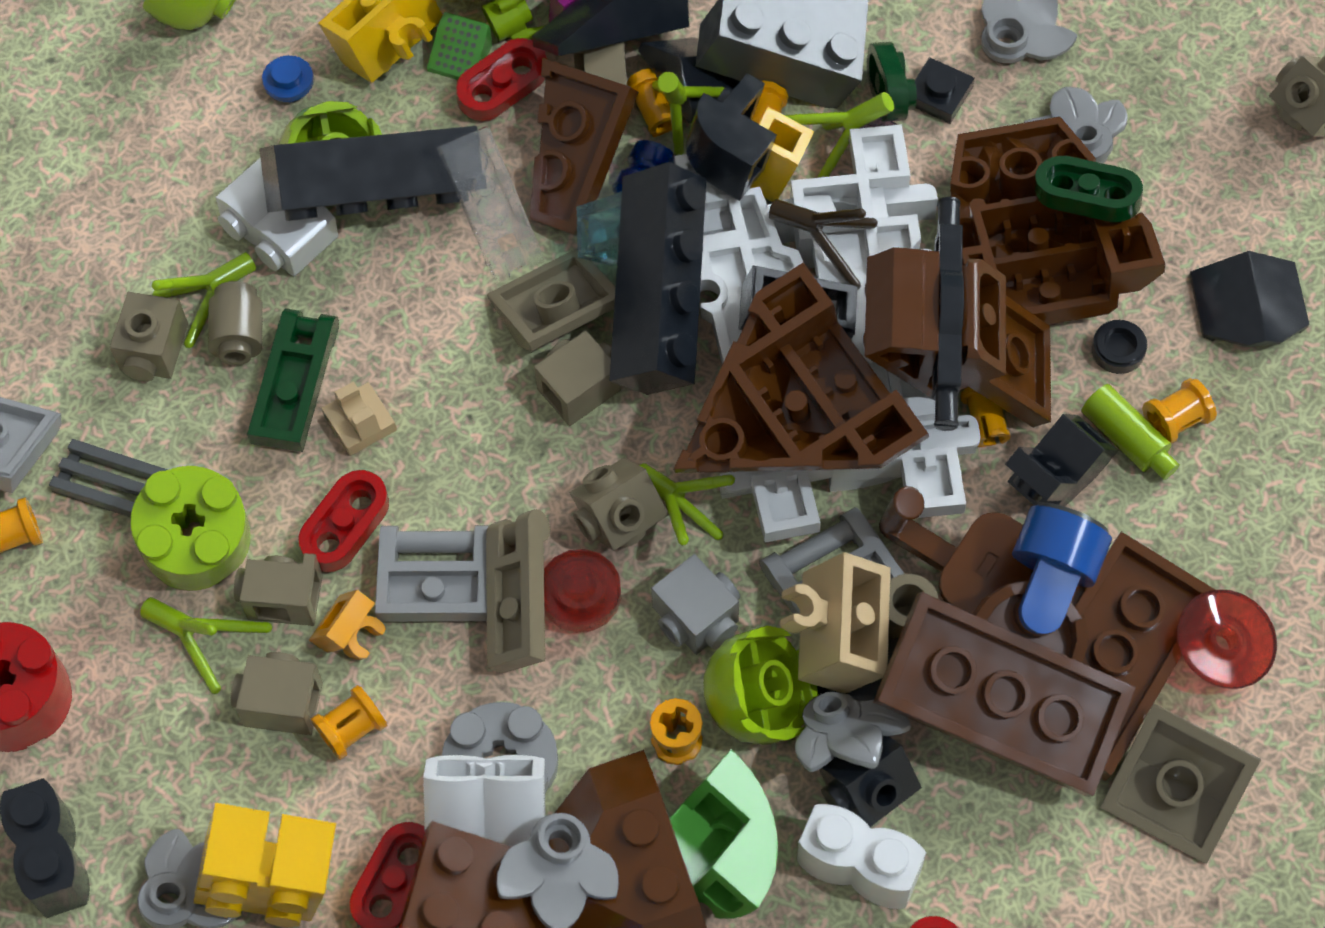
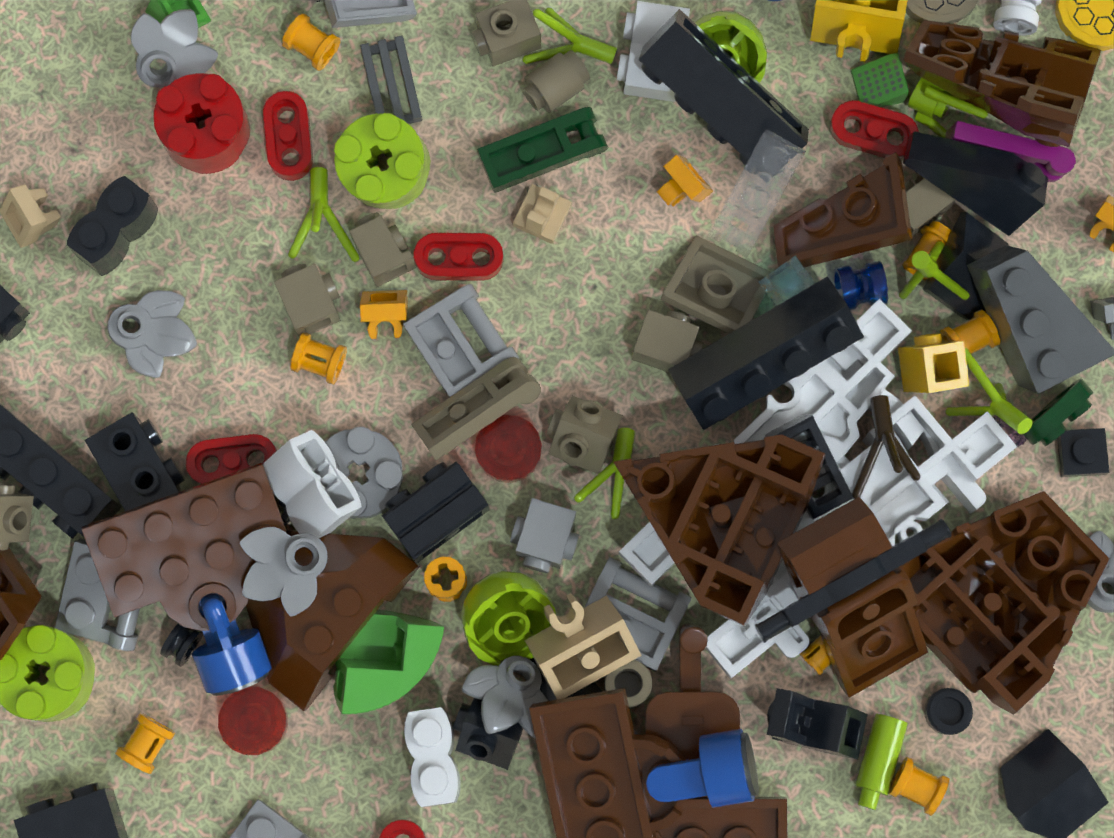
camera: 55 degrees right, 15 degrees up
(90, 613) = (288, 137): none -> red plate
(260, 876) = (177, 375): yellow piece -> none
(427, 265) = (684, 182): none -> light orange tile
(596, 699) = (434, 510): none -> black brick
(726, 141) = (904, 329): black brick -> none
(1088, 188) = (1048, 620): dark green plate -> none

